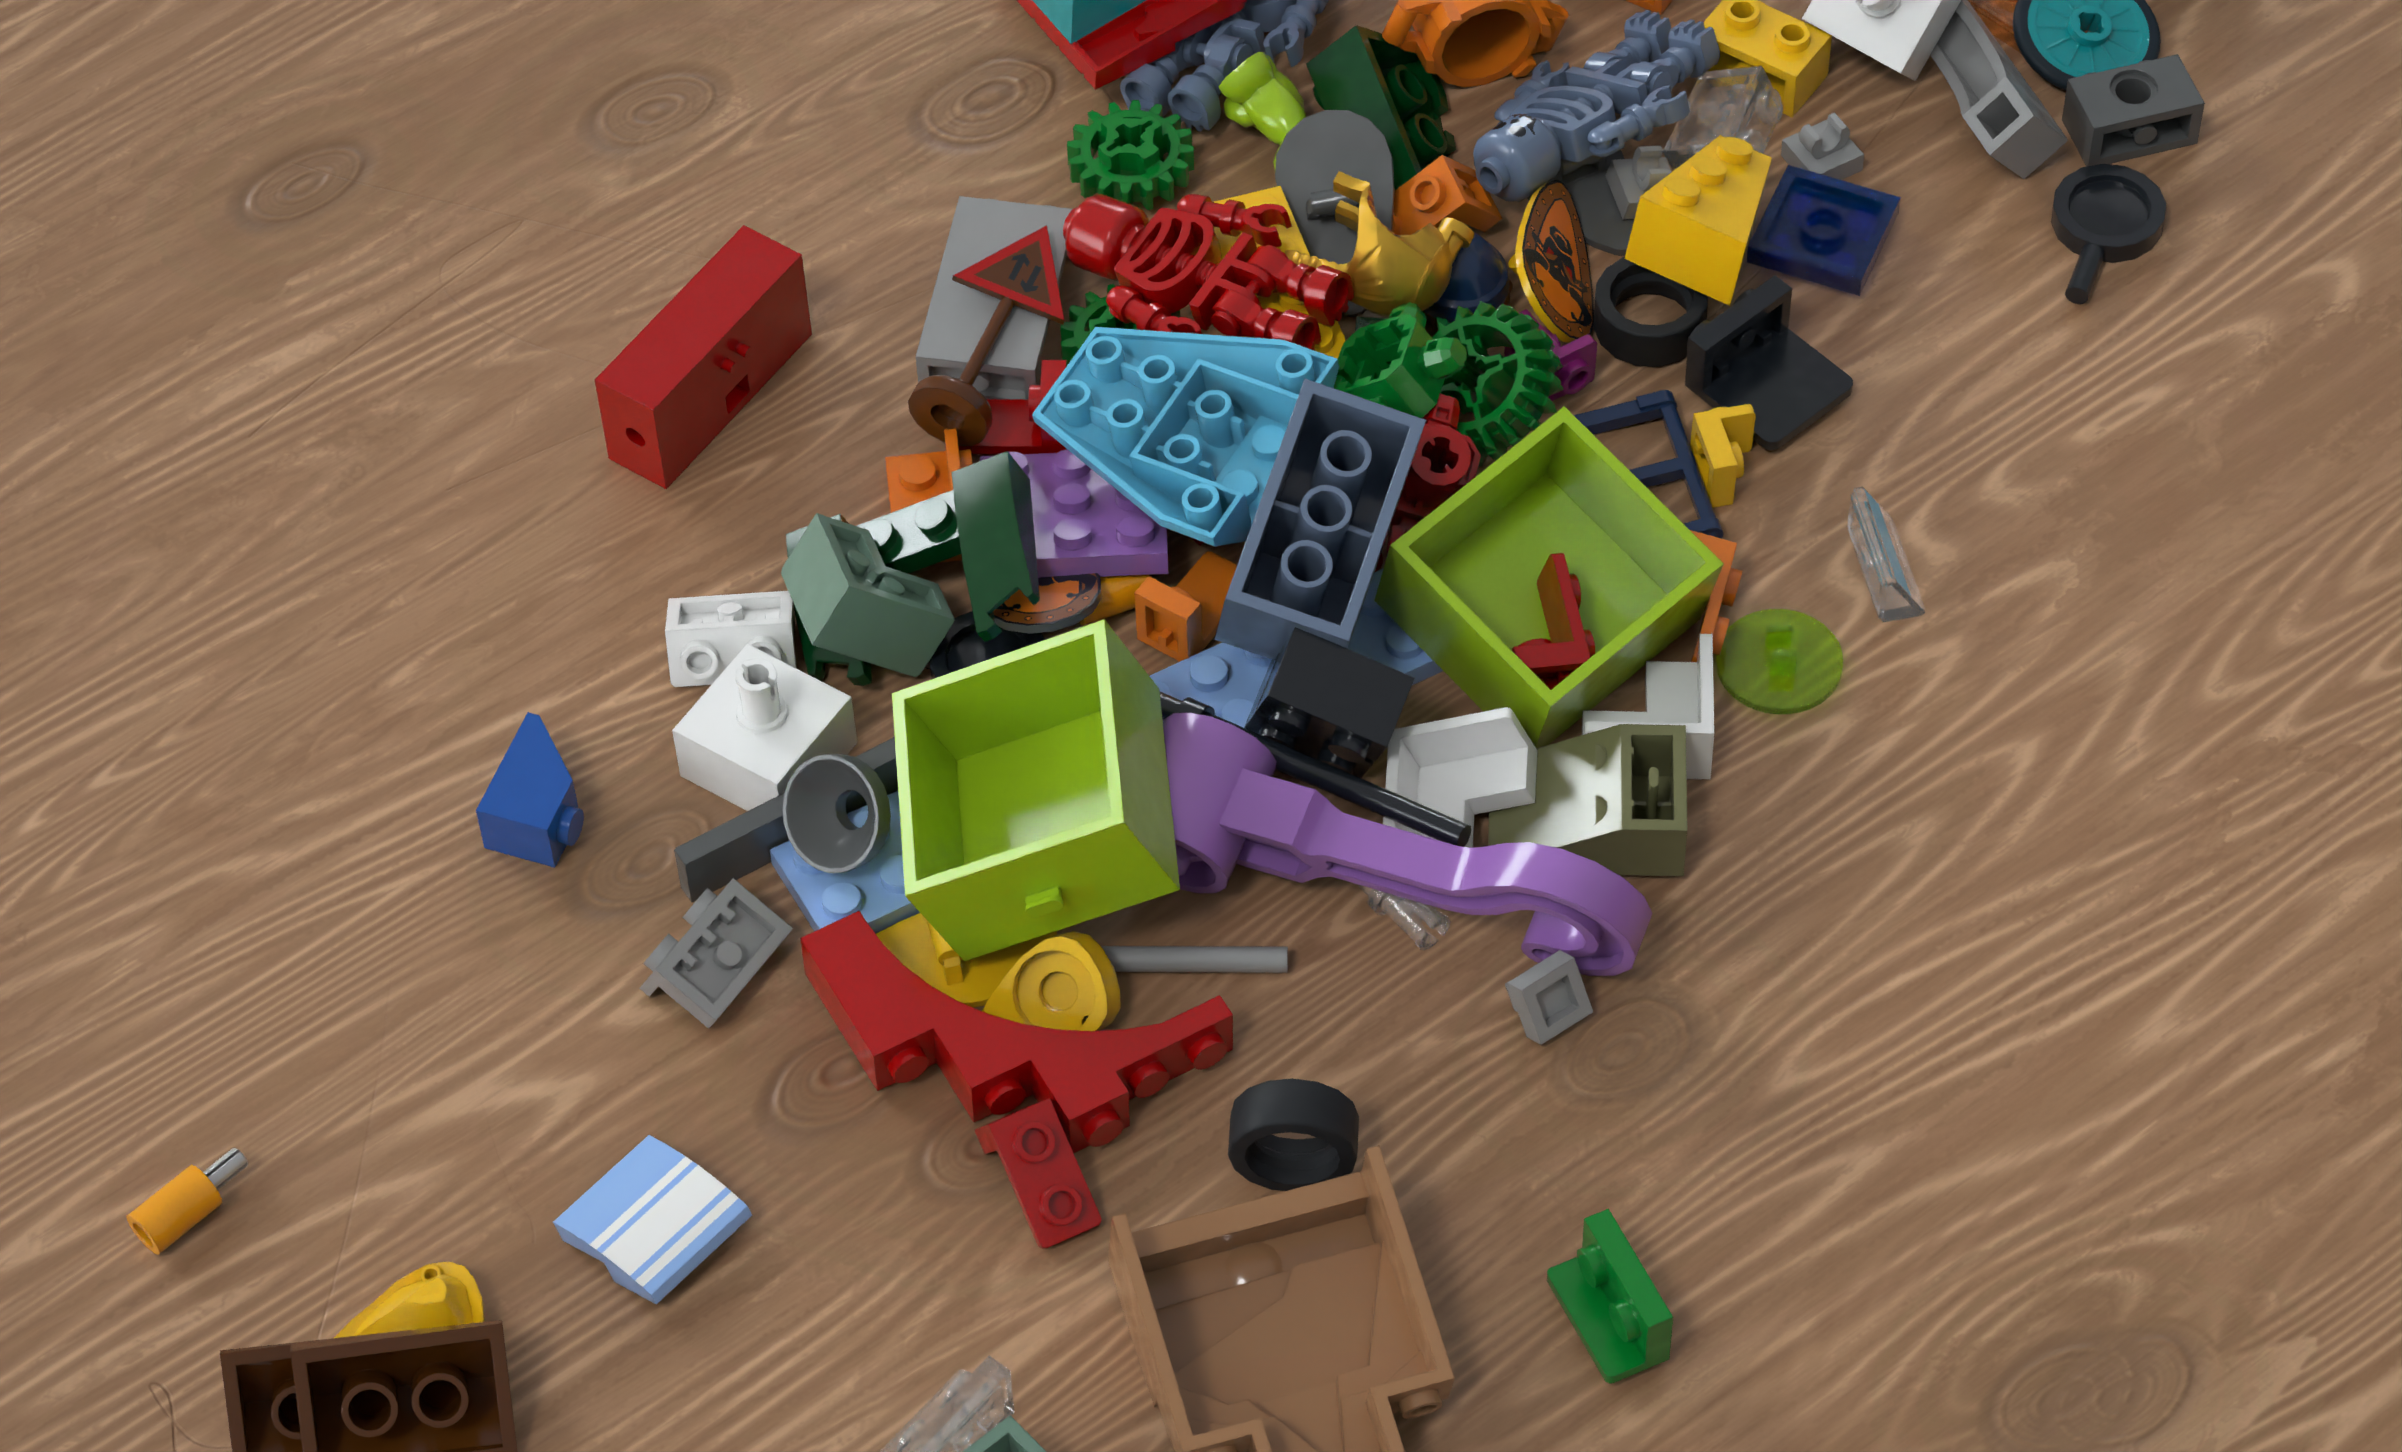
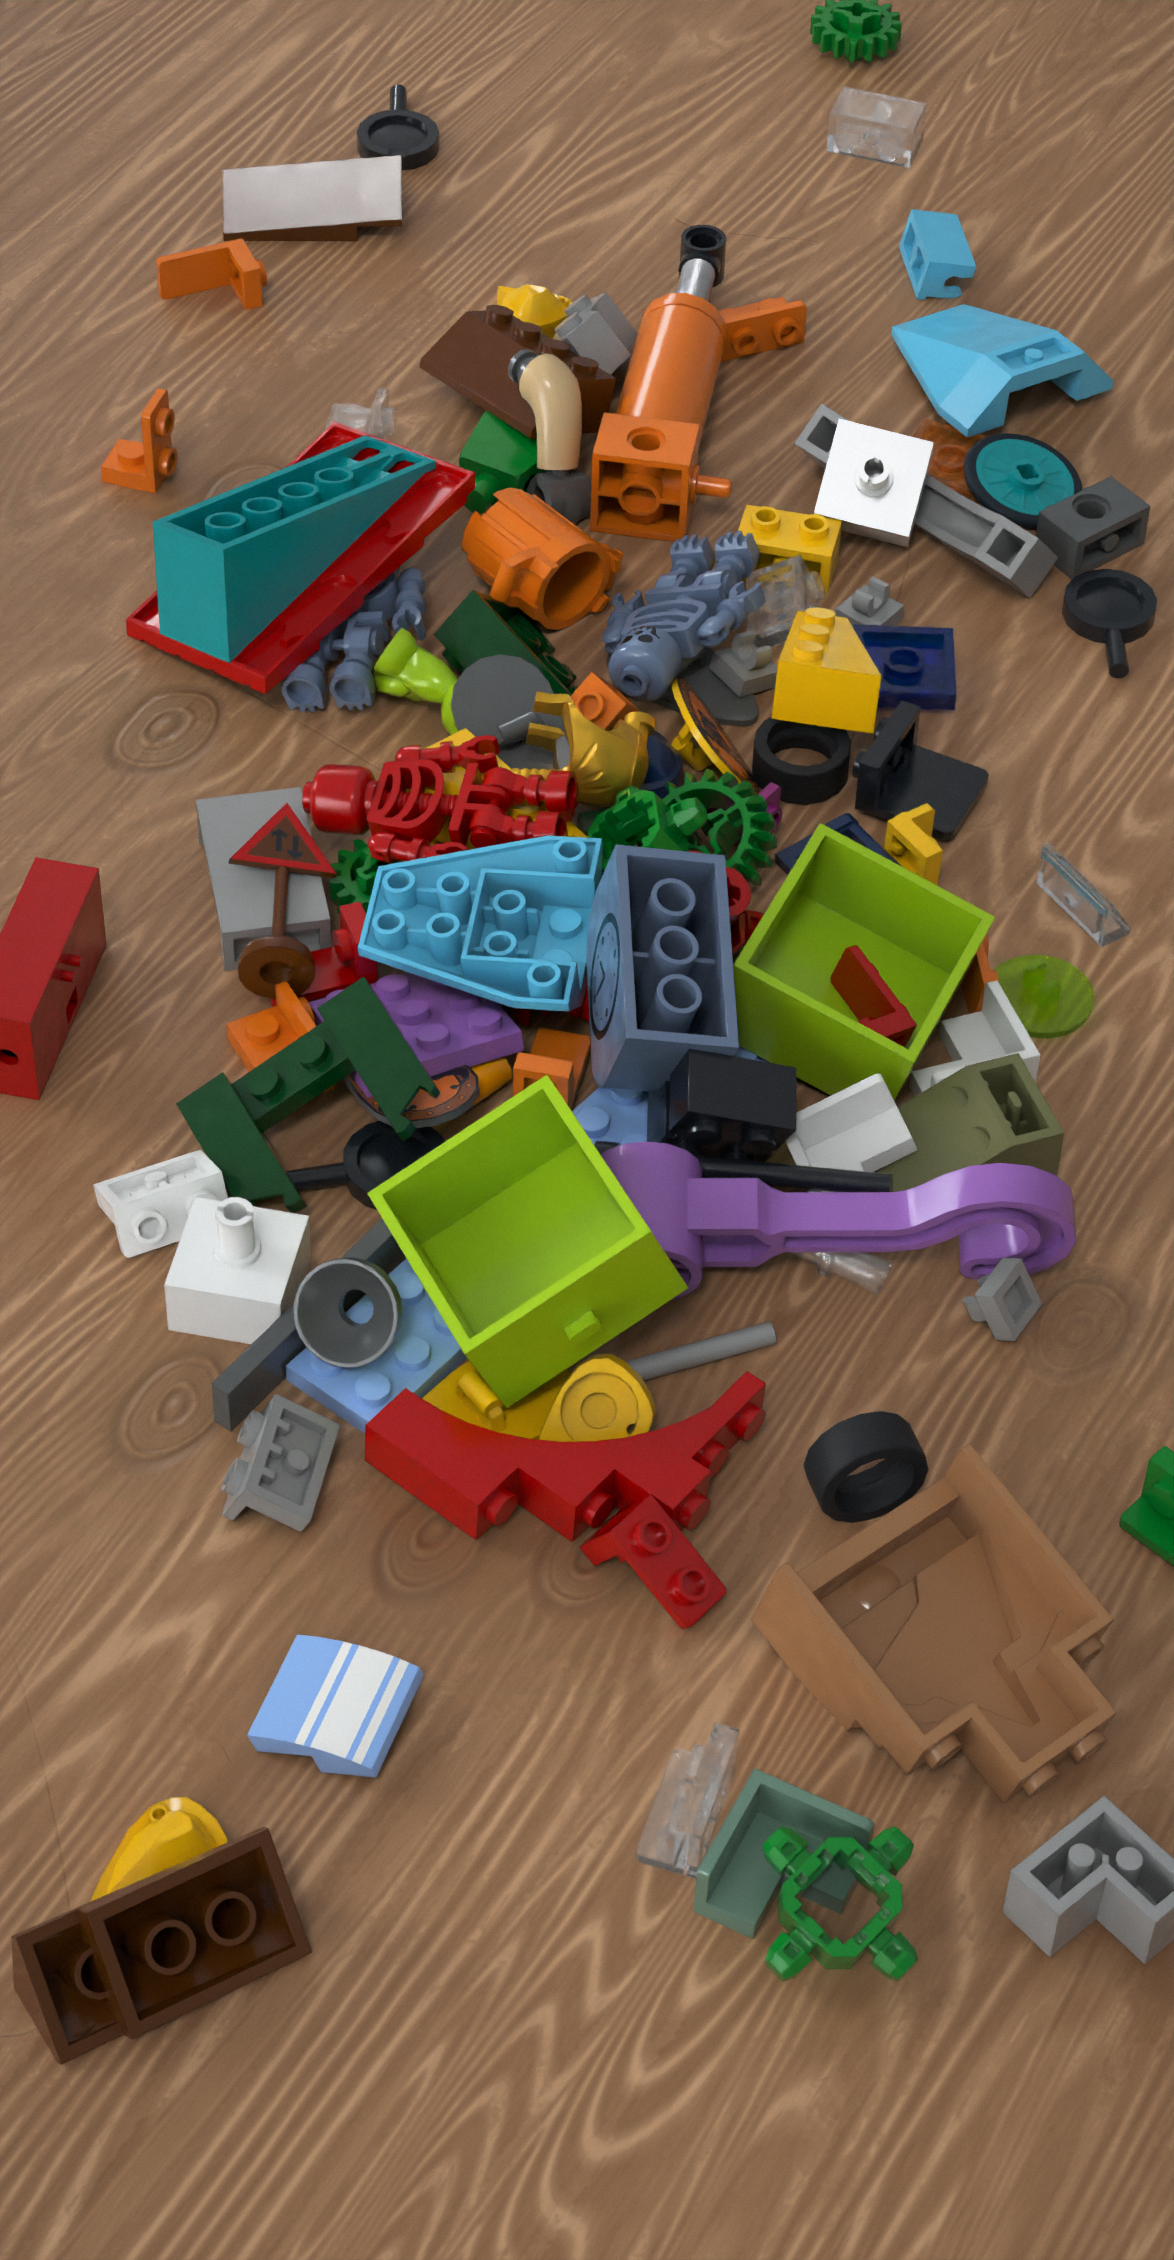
camera: 25 degrees left, 5 degrees down
(531, 800) = (55, 1381): blue slope -> none
(861, 605) = (276, 1137): sand green panel -> none
(1131, 154) = (315, 735): green gear -> none

